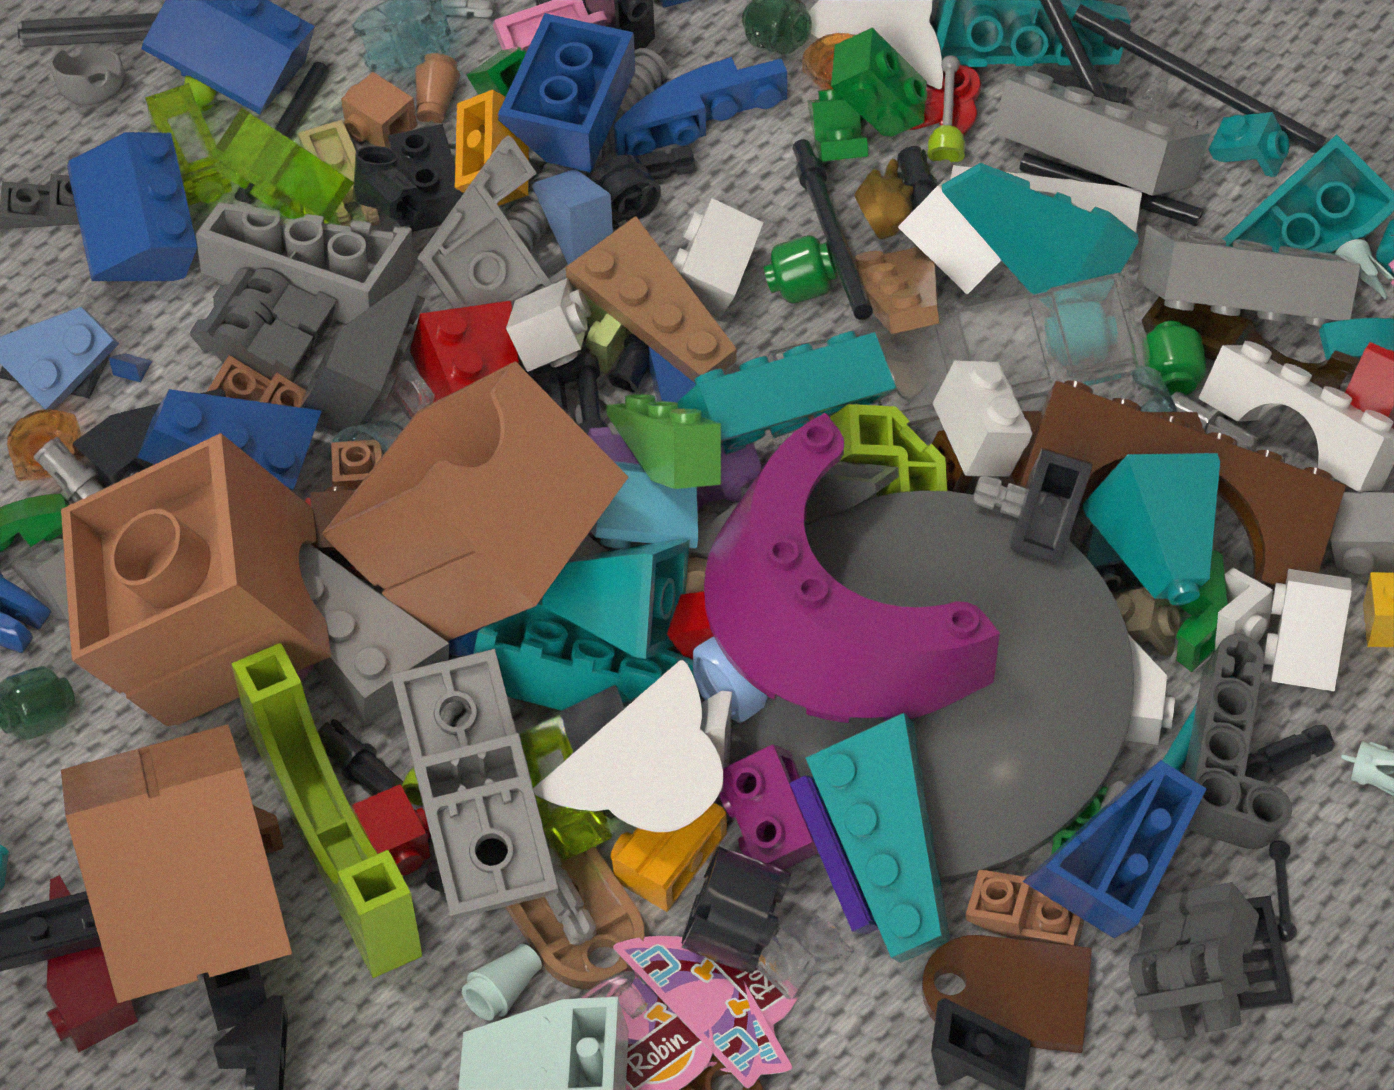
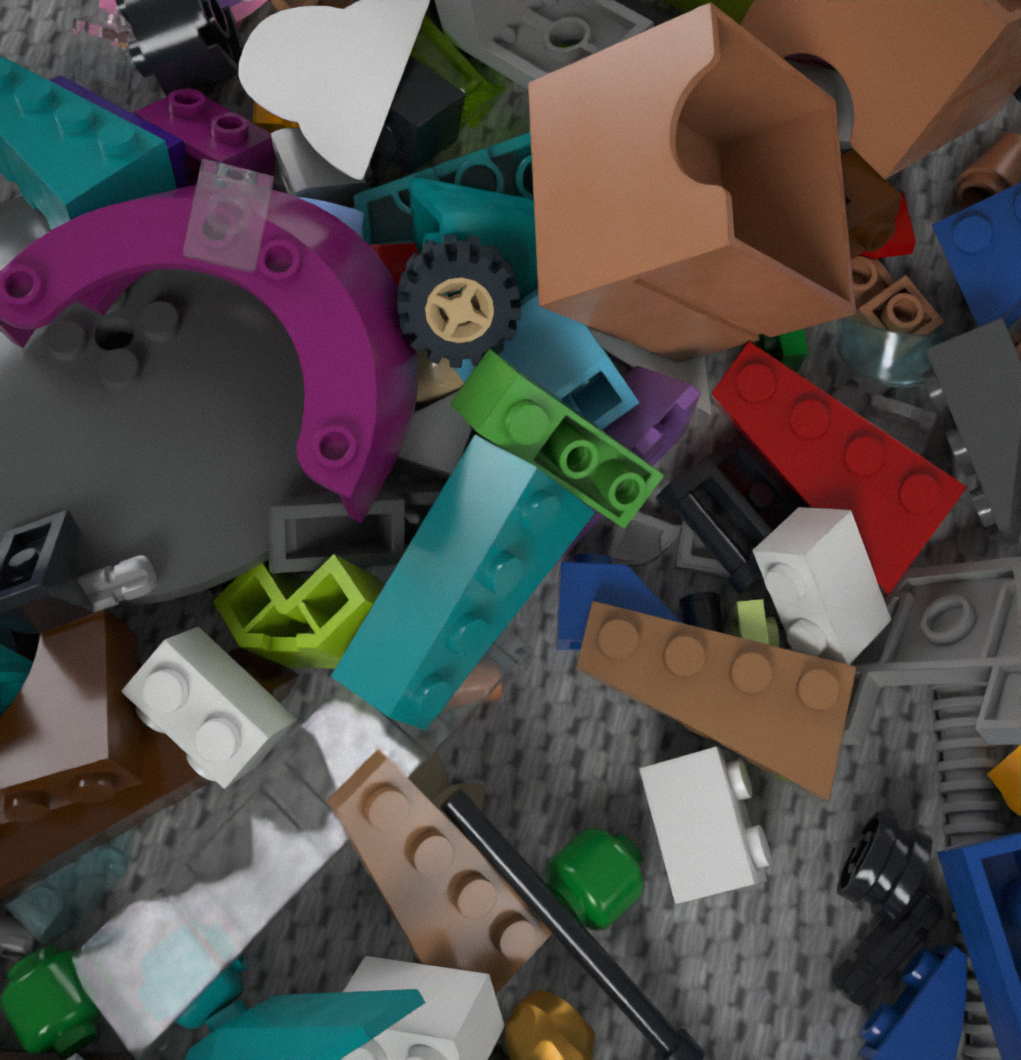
camera: 145 degrees right, 20 degrees up
(575, 211) = (916, 788): medium blue slope -> none
(674, 523) = (454, 324): none -> black wheel
(788, 592) = (228, 216): none -> clear bracket

